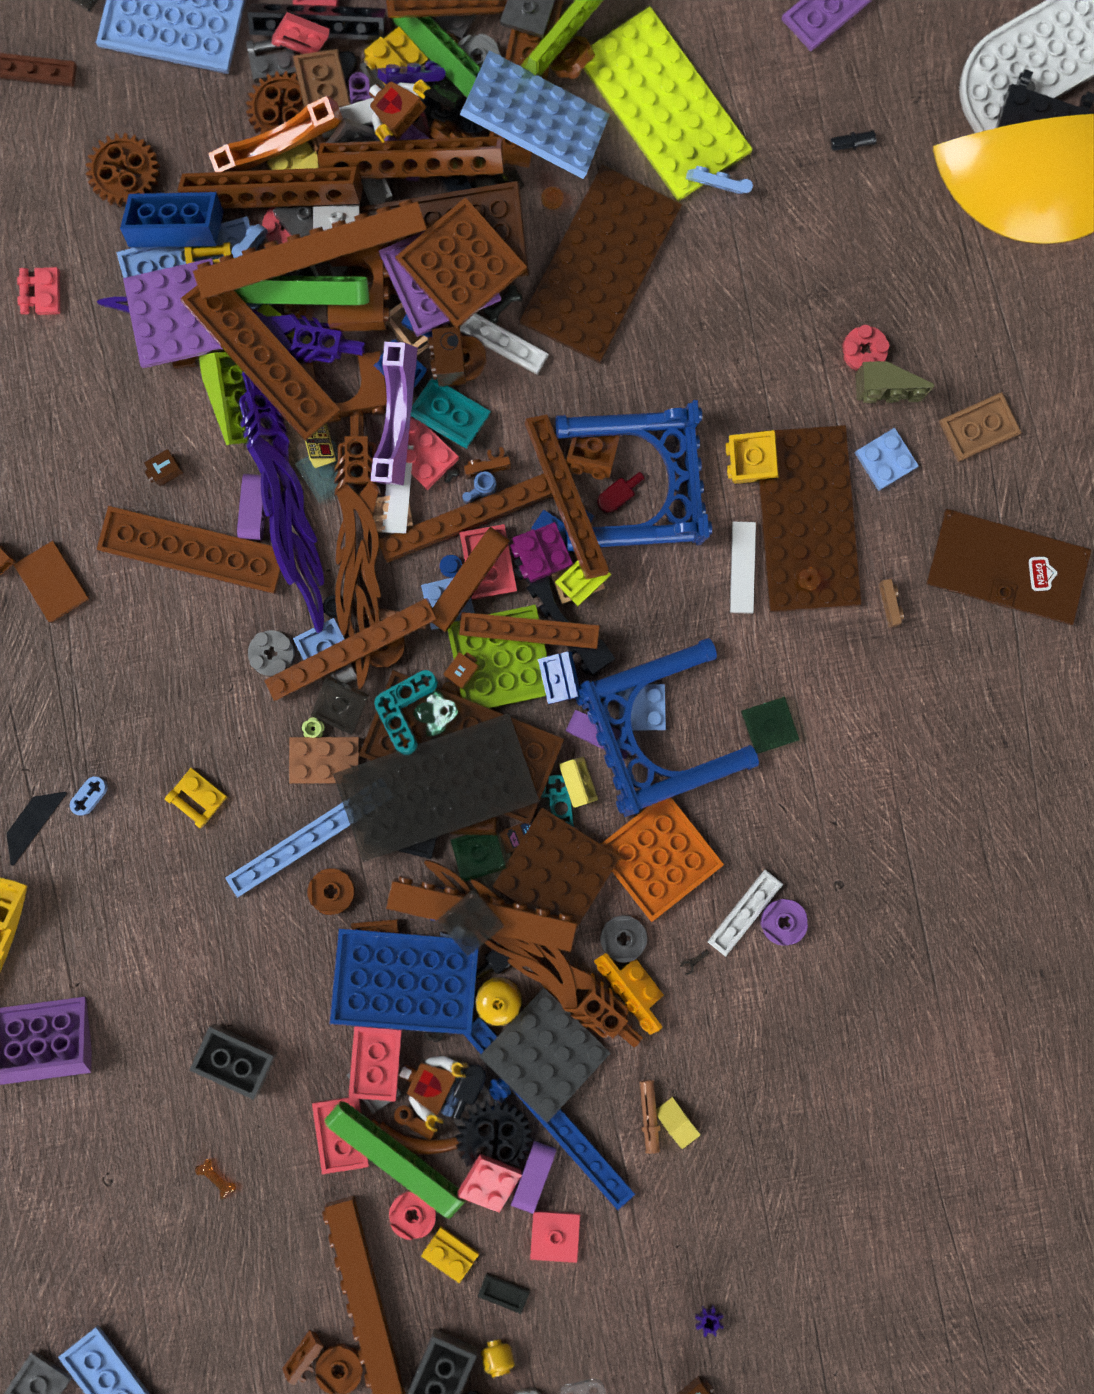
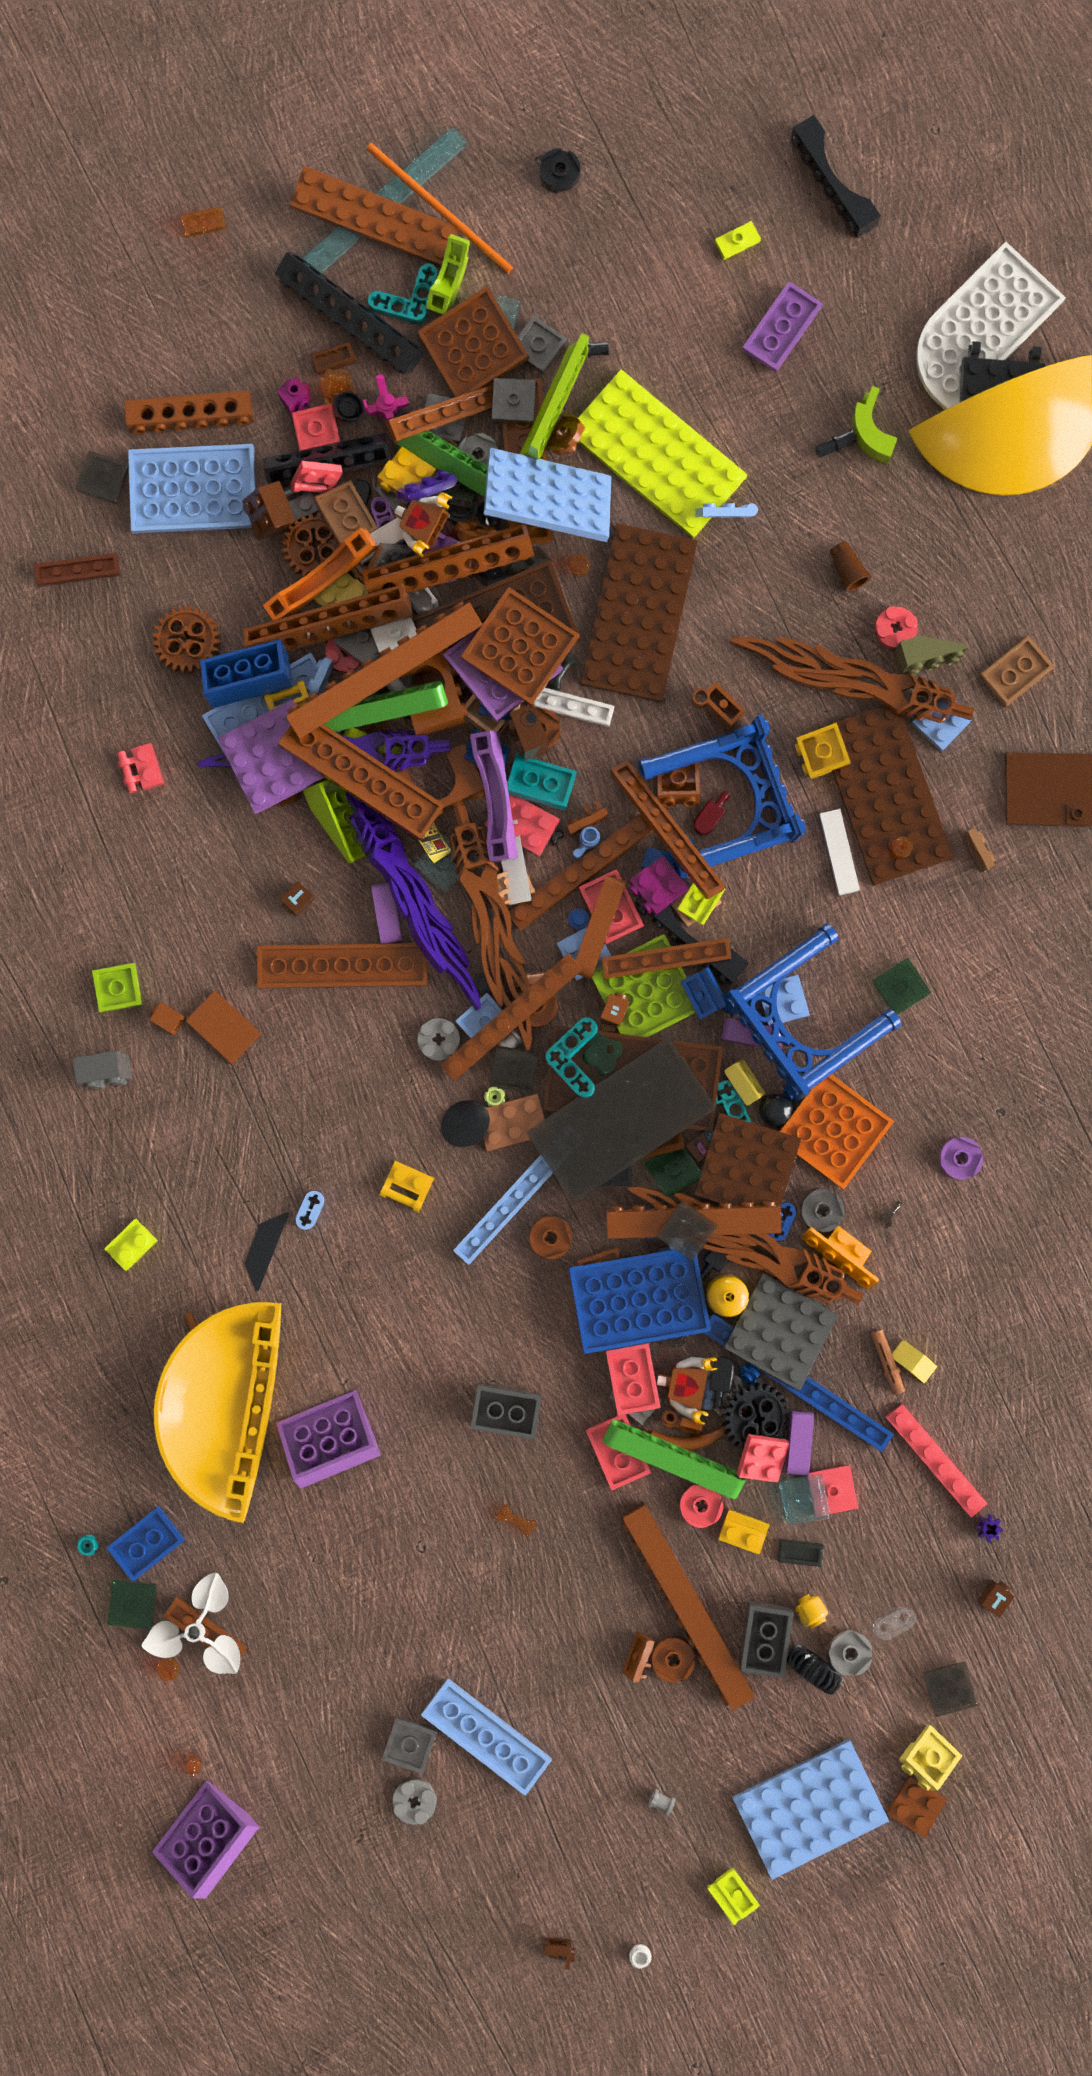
camera: 15 degrees left, 0 degrees up
(241, 56) = (268, 510): none -> reddish brown brick
(273, 748) = (465, 1123): none -> black shield
(522, 1238) = (804, 1499): none -> clear light blue plate
(583, 941) = (786, 1224): none -> blue beam
(603, 819) = (775, 1109): none -> black hair
(658, 381) = (720, 705): none -> dark orange hinge
(673, 1234) = (936, 1460): none -> coral plate
(745, 912) = (923, 1159): white tile -> none
(793, 388) = (843, 672): none -> dark orange piece
(833, 272) = (849, 567): none -> reddish brown plant
(890, 144) = (868, 436): none -> lime arch

